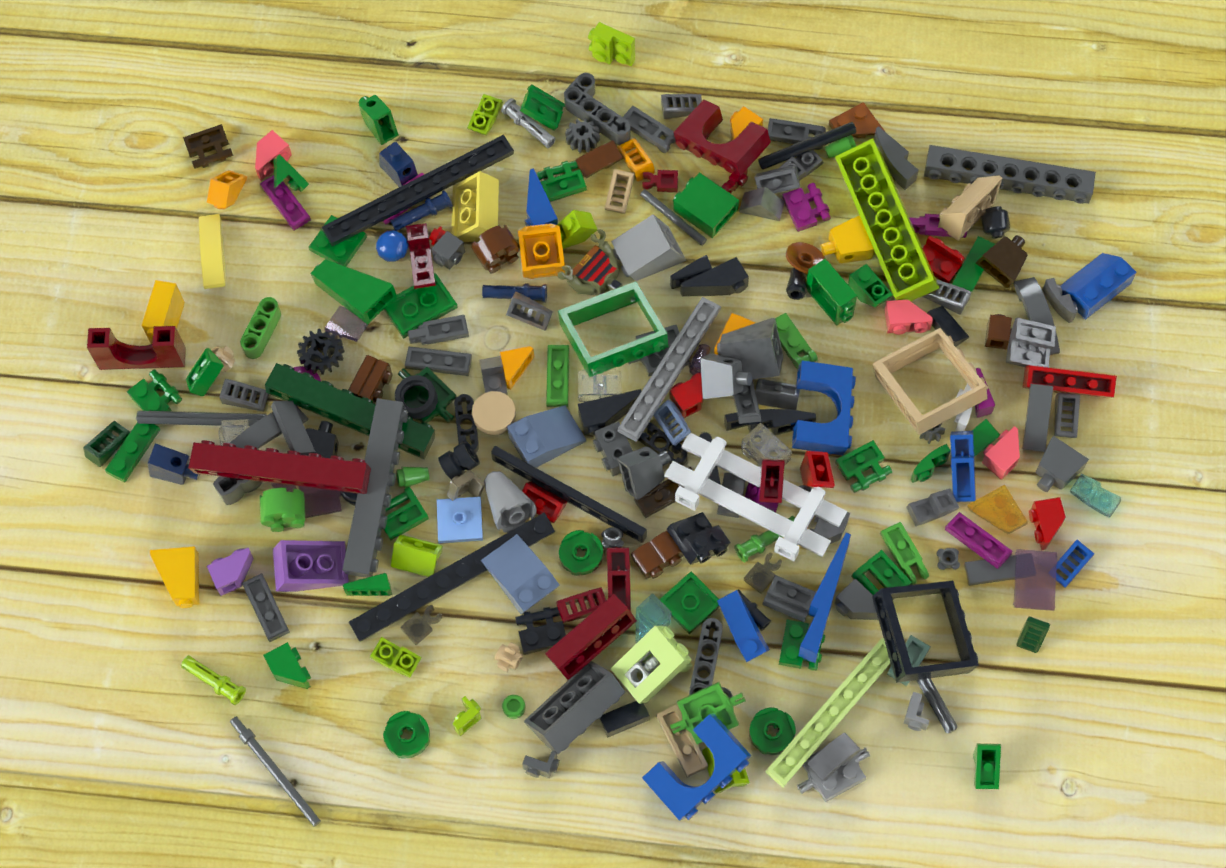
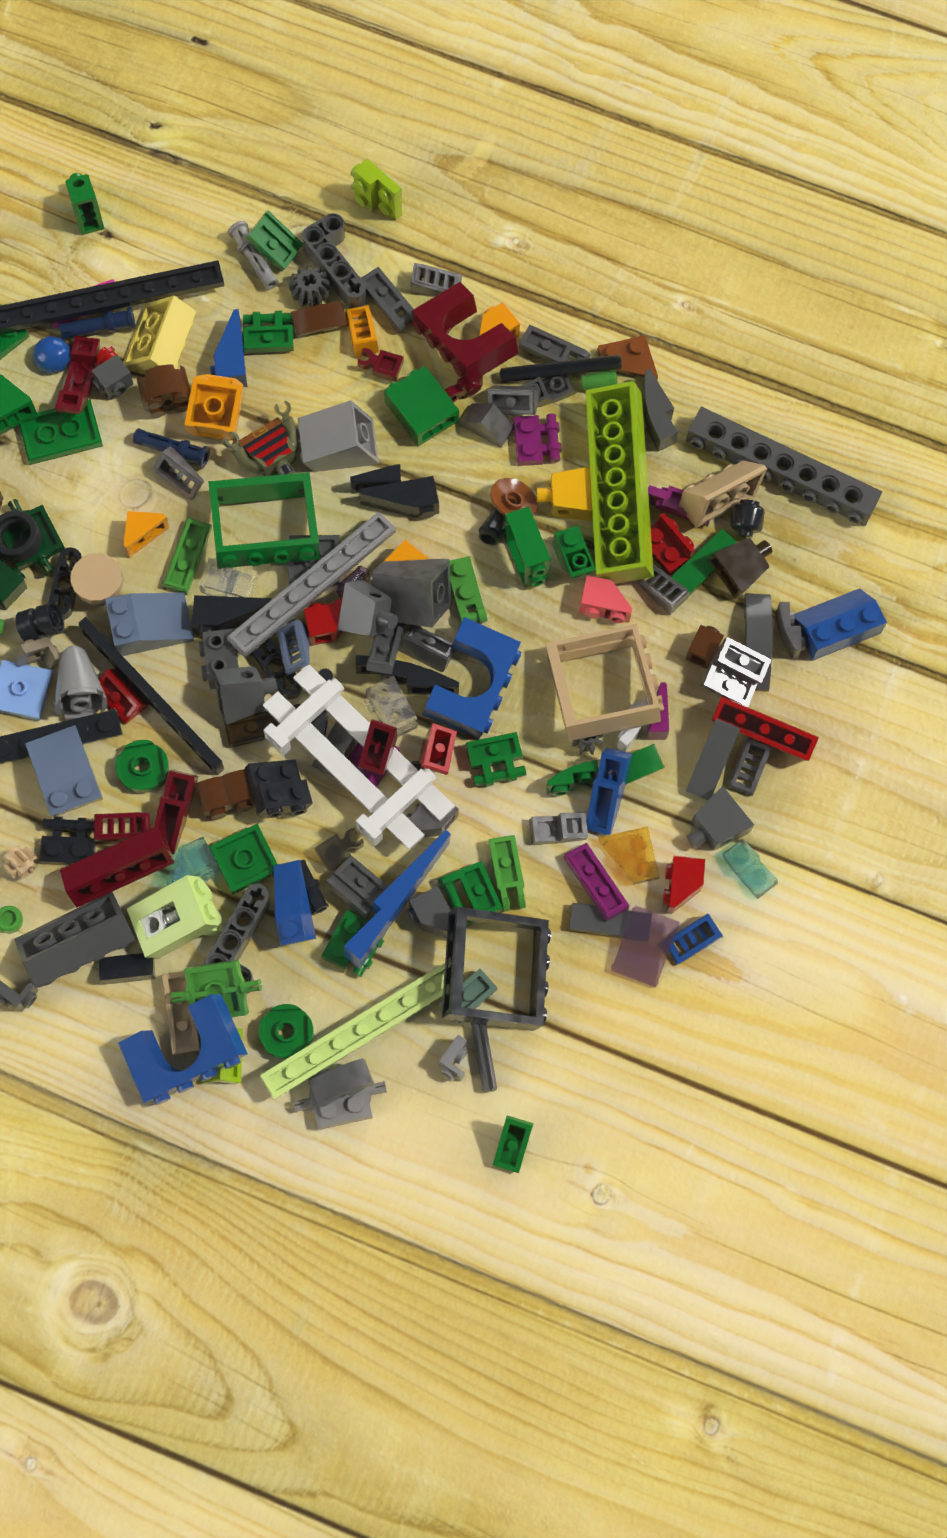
camera: 10 degrees right, 5 degrees up
(395, 161) = (86, 258): dark blue torso -> none
(438, 361) = (59, 501): dark grey tile -> none
(440, 330) = (72, 467): dark grey hinge -> none
(485, 115) = (209, 233): lime slope -> none
(493, 375) = (112, 536): flat silver slope -> none
(576, 228) = (263, 392): lime slope -> none
(612, 538) = (183, 760): dark grey plate -> none
(621, 175) = (331, 343): tan slope -> none
(673, 217) = (381, 409): dark grey bar -> none
(756, 544) = (342, 813): bright green pin -> none
(943, 320) = (649, 623): black slope -> none
(953, 554) = (559, 899): dark grey plate -> none
(1004, 454) = (660, 791): coral slope -> none
(1032, 634) = (617, 1009): dark green slope -> none

